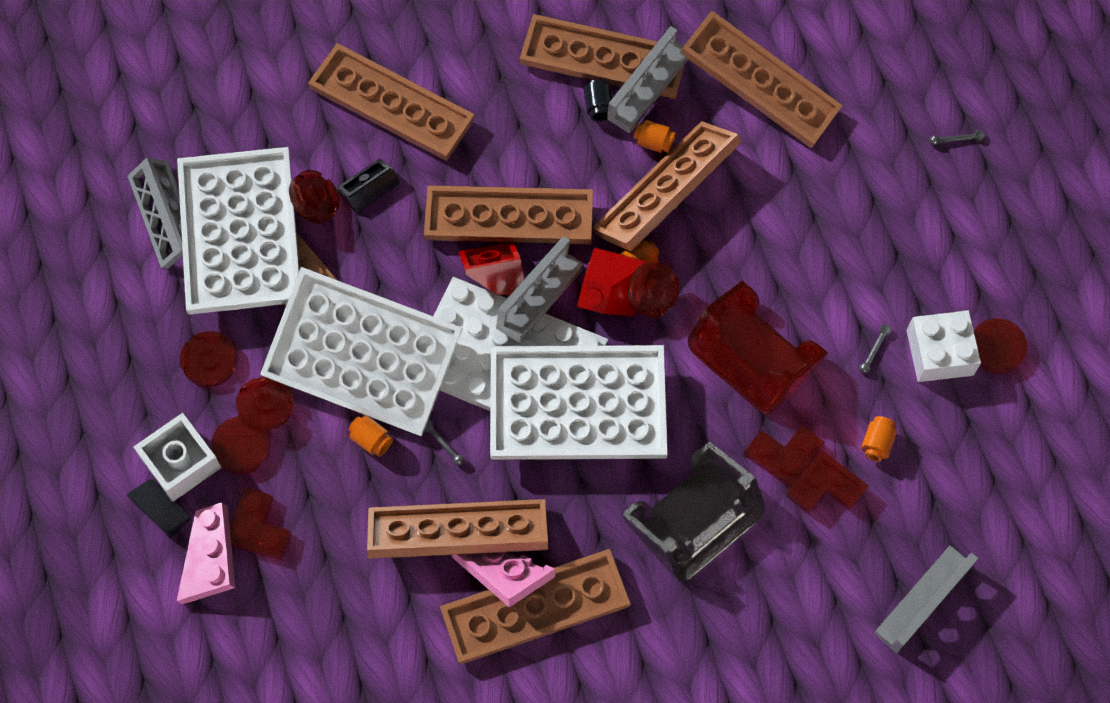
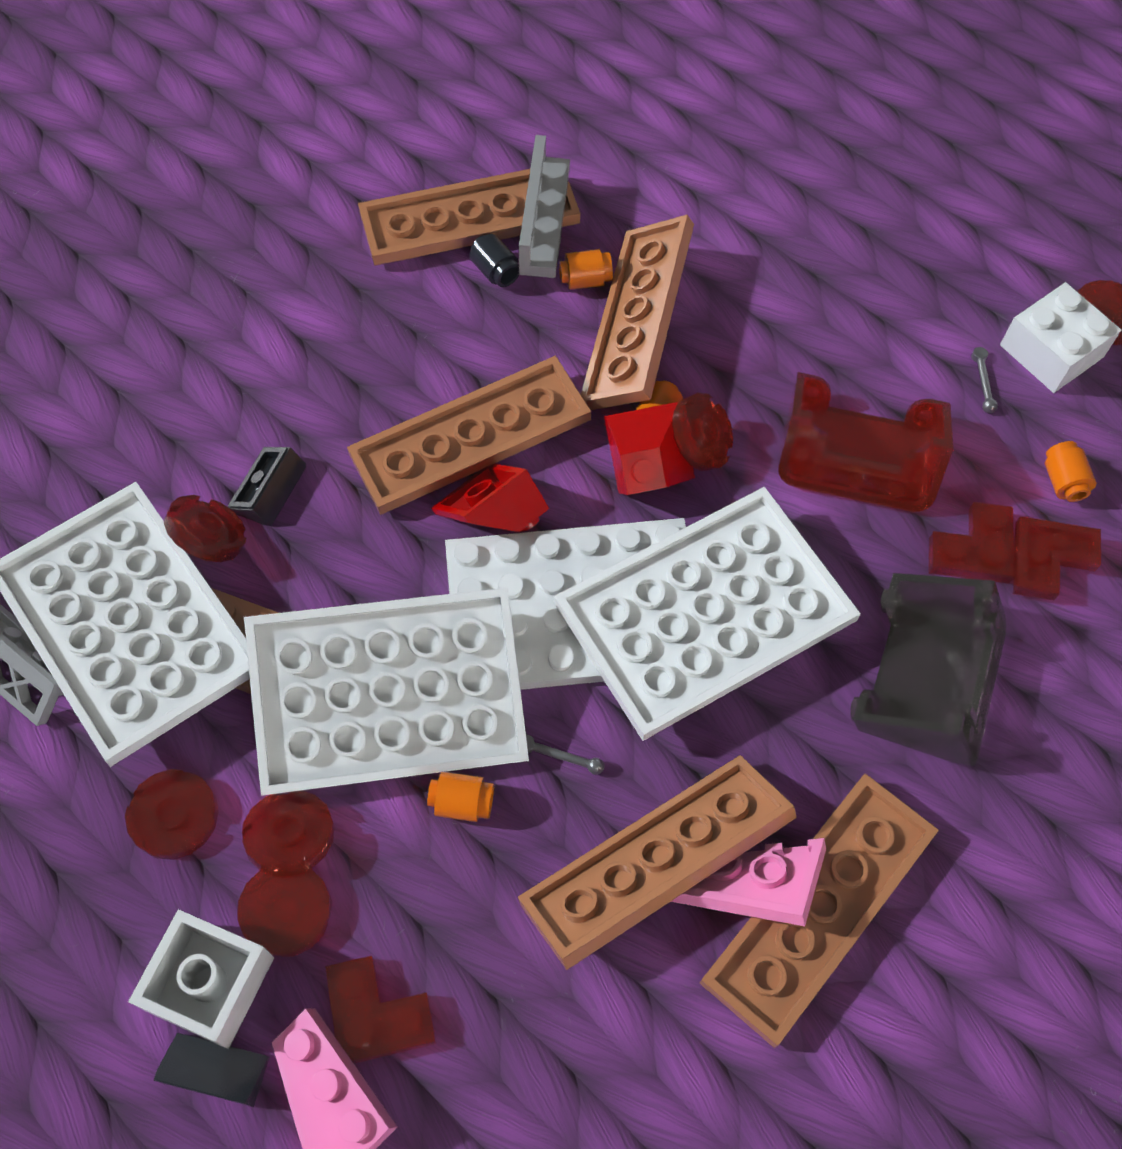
camera: 30 degrees left, 5 degrees down
(391, 101) = (239, 374): nougat plate -> none
(538, 291) = (568, 505): light grey fence -> none
(761, 79) = (665, 155): nougat plate -> none
(977, 136) = (922, 120): flat silver hinge -> none

